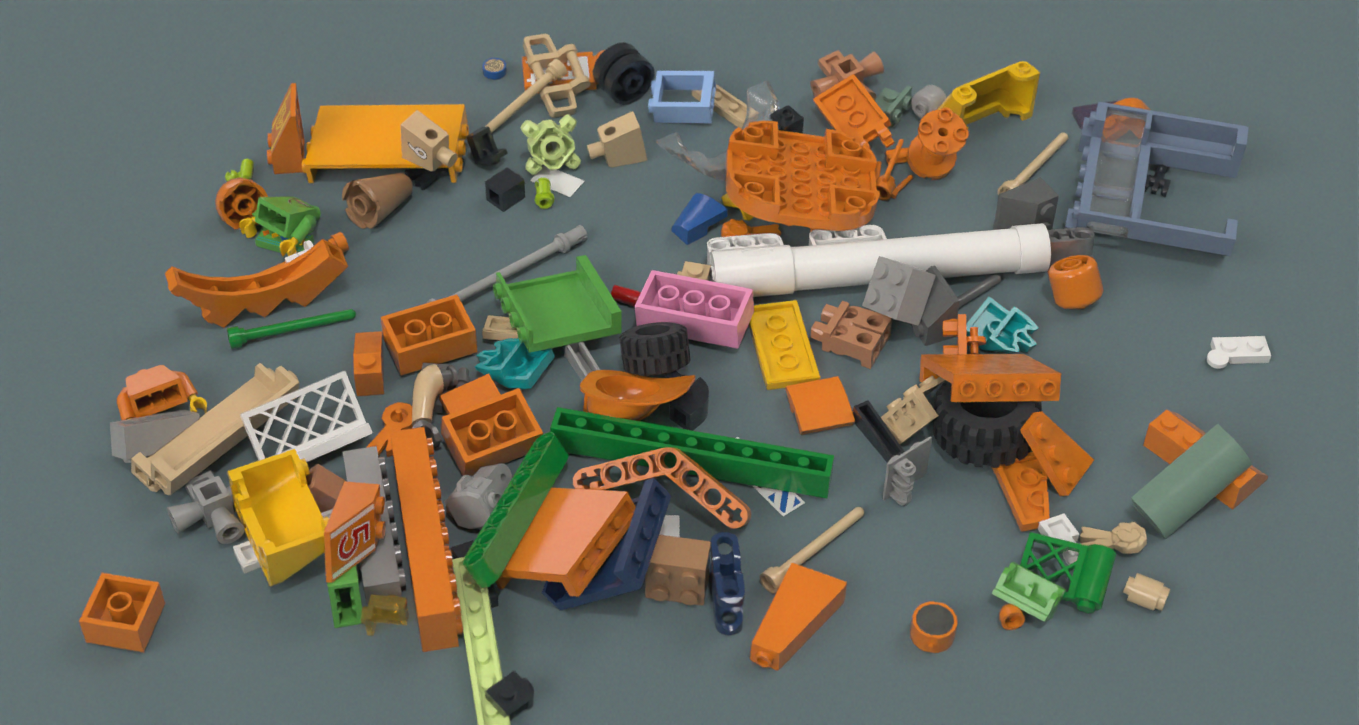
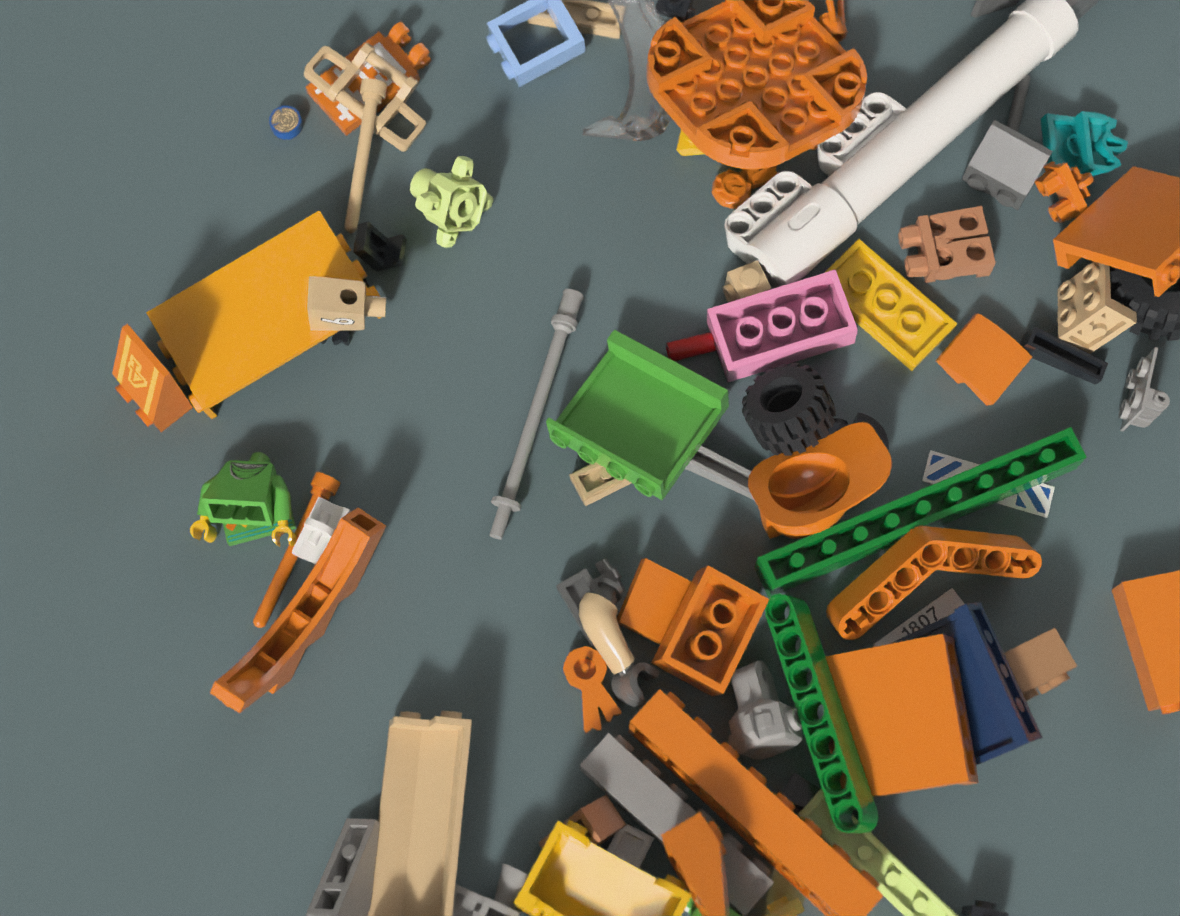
camera: 35 degrees left, 25 degrees up
(156, 391) = (305, 830): orange torso -> none
(238, 200) = (170, 508): orange cylinder -> none
(239, 336) = (325, 685): green piece -> none
(245, 171) = (132, 461): lime arm -> none
(322, 443) = (535, 772): white fence -> none
(369, 363) = (492, 618): orange slope -> none
(375, 198) = (320, 399): medium nougat cone -> none
(429, 334) = (535, 546): orange brick -> none
(505, 189) = (444, 289): black brick -> none
(513, 364) = (647, 522): teal plate -> none
(544, 196) = (494, 272): lime pin -> none
(559, 181) = (486, 237): white sticker -> none
(619, 142) = (520, 147): tan torso -> none
(623, 73) = (450, 48): black wheel -> none
(697, 217) = (674, 192): blue slope -> none
(727, 583) = (1088, 650): dark blue piece -> none
(773, 577) = (1105, 601): tan piece -> none
(898, 290) = (973, 171): light grey brick -> none
(1075, 282) = (1115, 39): orange head -> none

